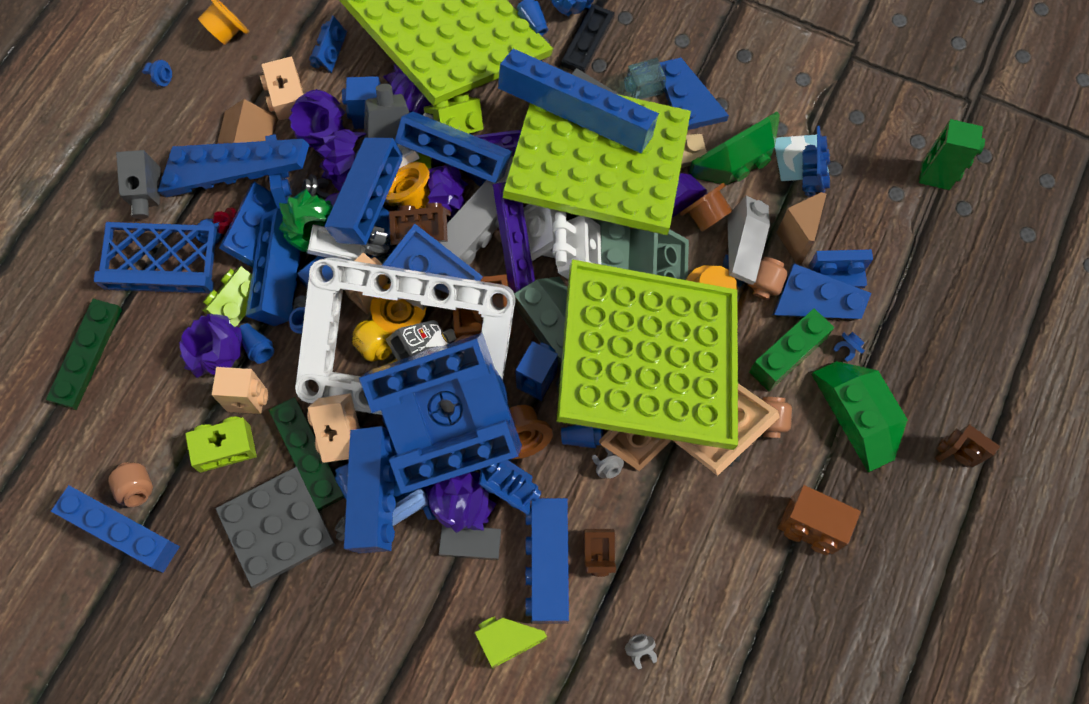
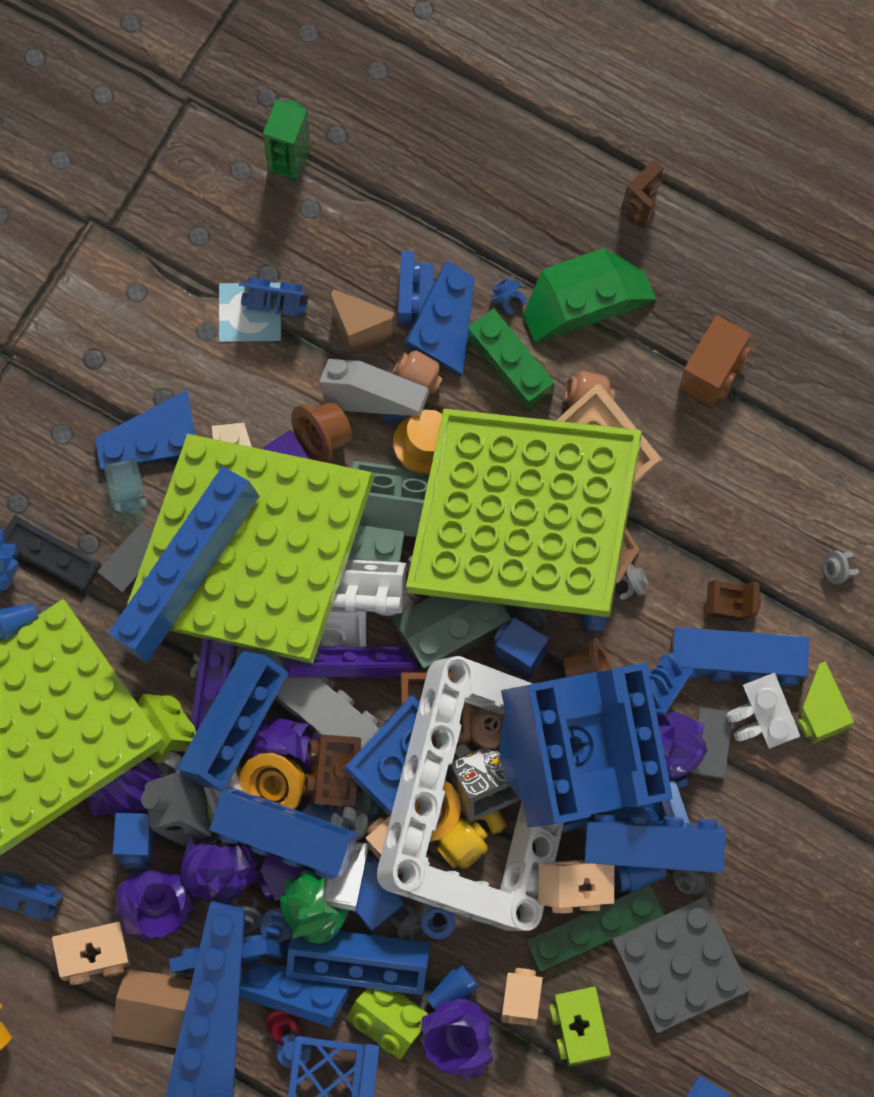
camera: 85 degrees left, 5 degrees up
(499, 590) = (770, 710): none -> white hinge
(738, 155) = (245, 381): green wedge -> none

